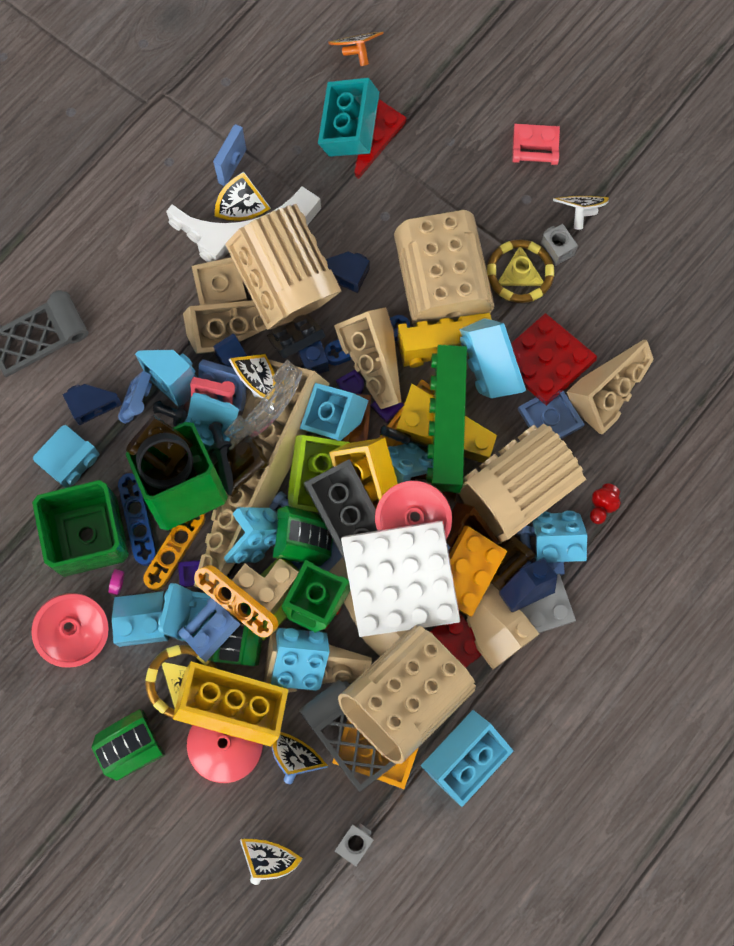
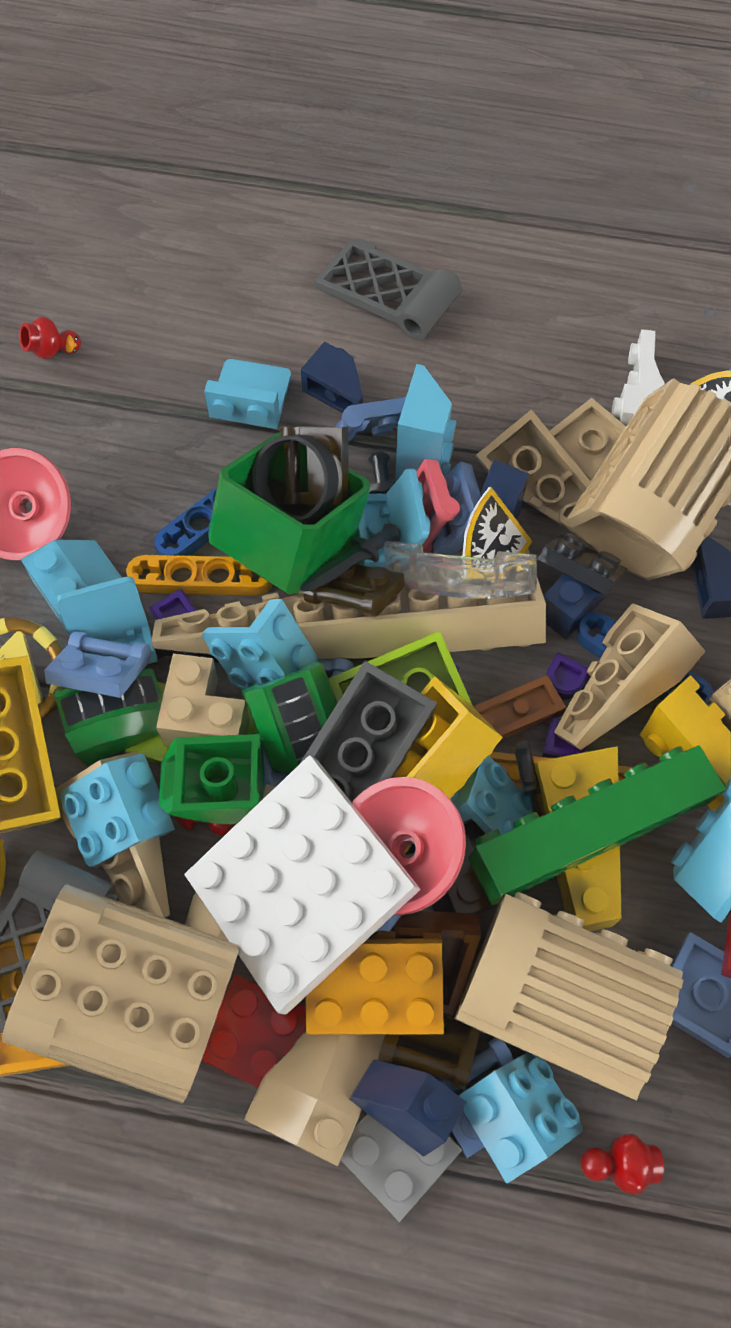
camera: 60 degrees right, 10 degrees down
(64, 516) = (149, 420): green plate -> none
(116, 582) = (113, 528): dark pink tile -> none
(234, 604) = (137, 717): light orange beam -> none
(333, 412) = (504, 663): medium azure slope -> none
(467, 758) = (79, 1155): medium azure slope -> none

